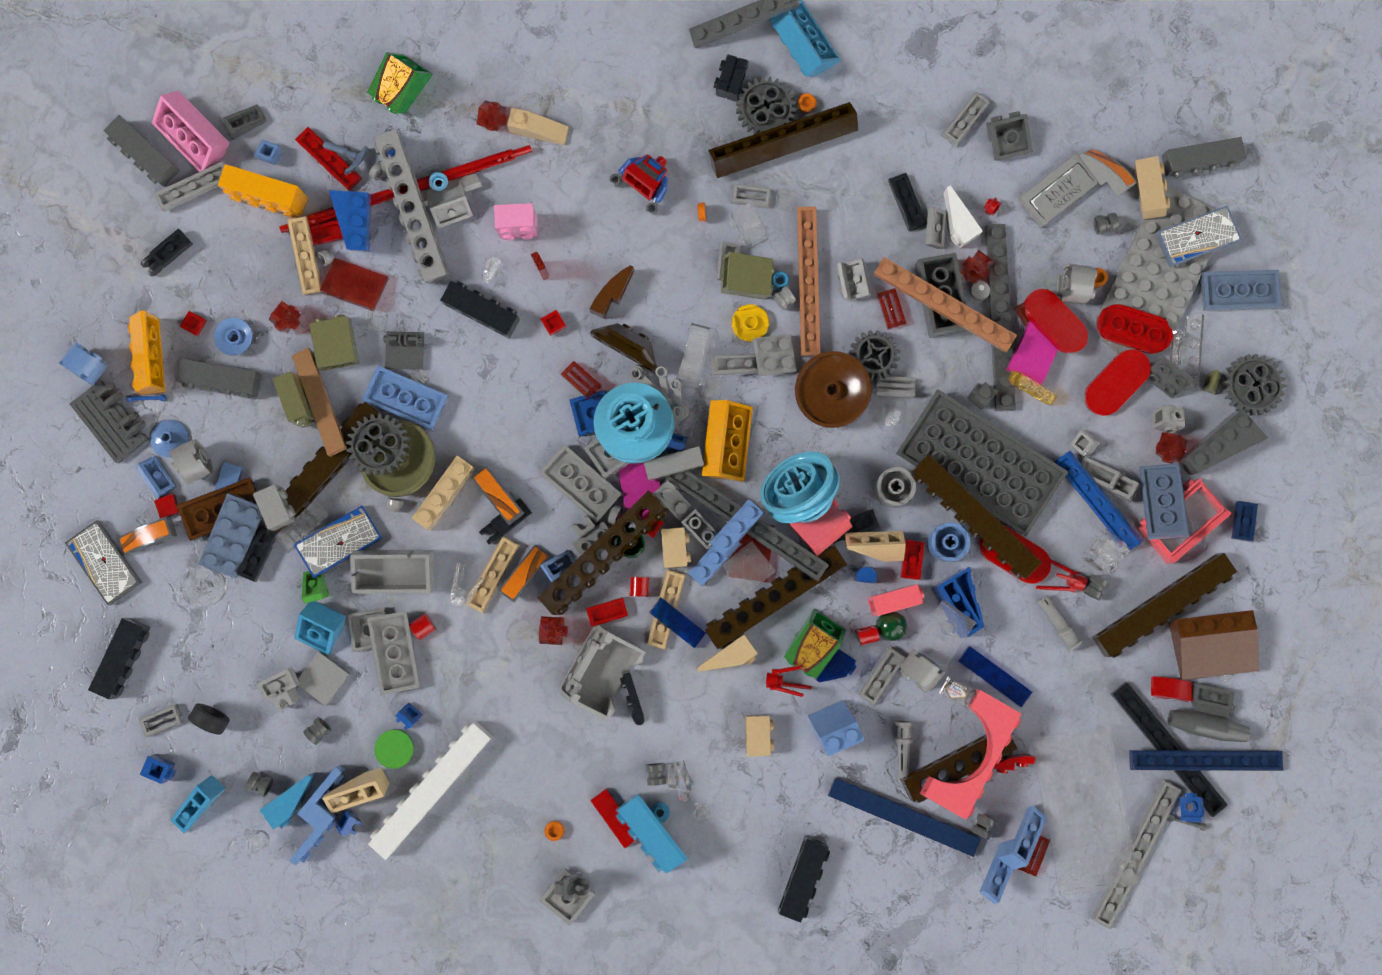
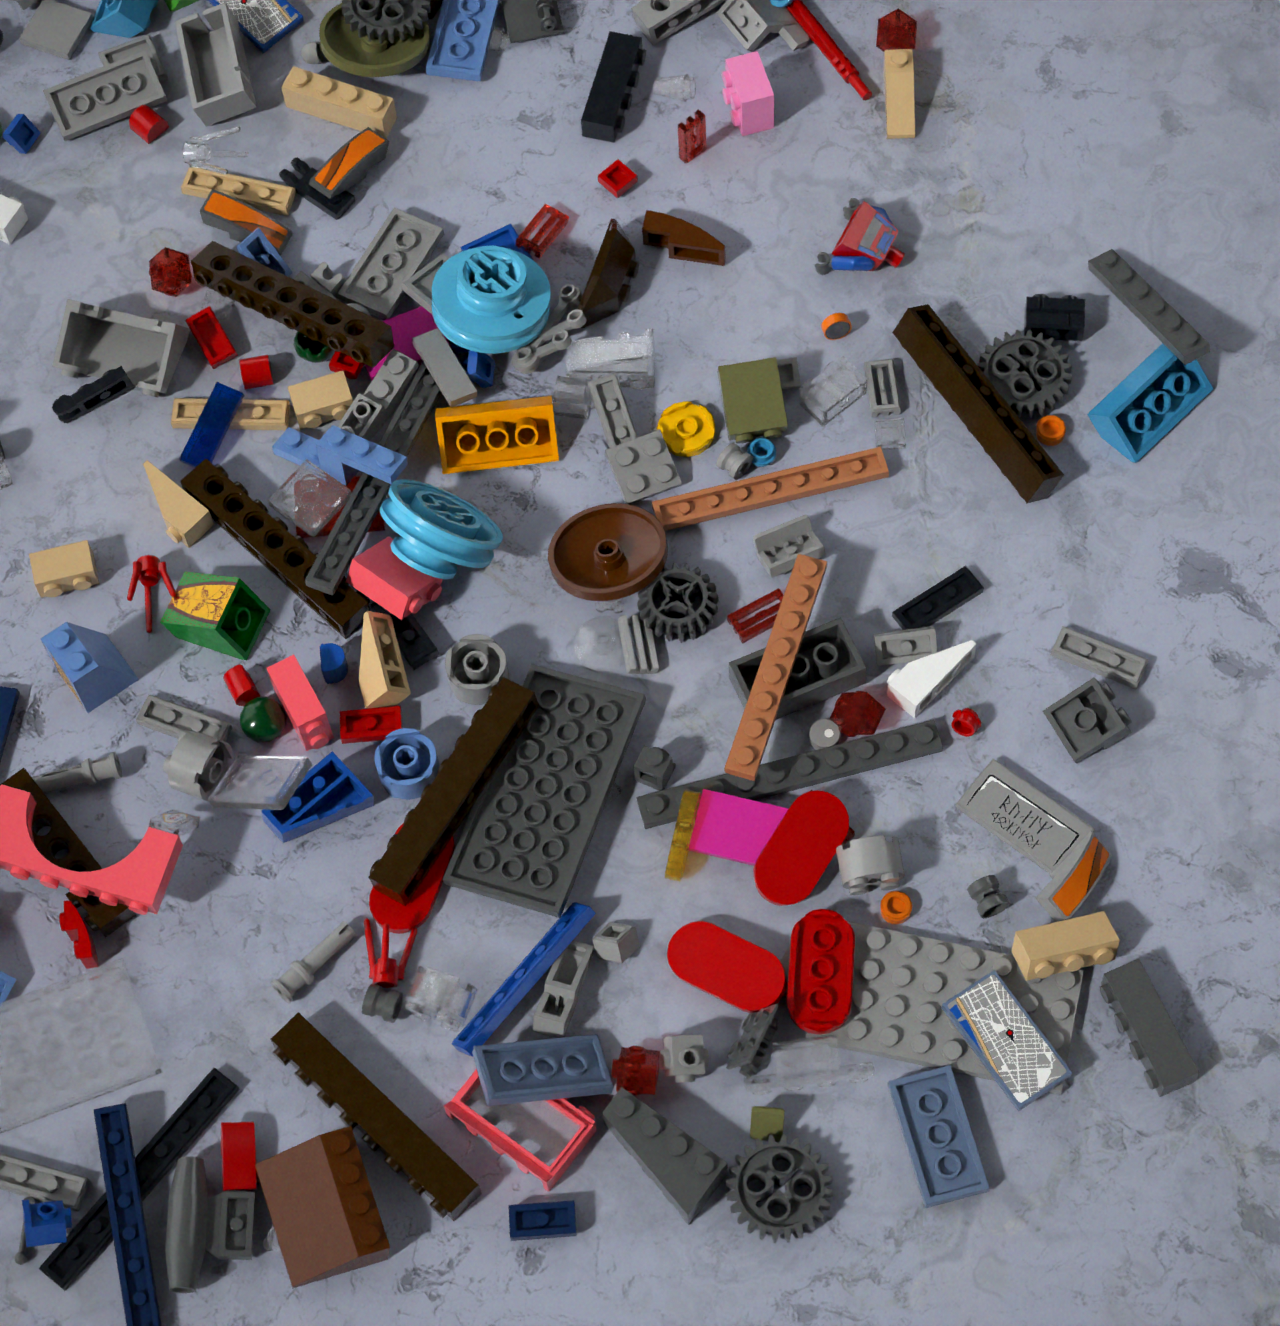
camera: 85 degrees right, 20 degrees down
(838, 667) = (187, 651): clear blue slope -> none
(995, 676) = (211, 885): clear blue tile -> none

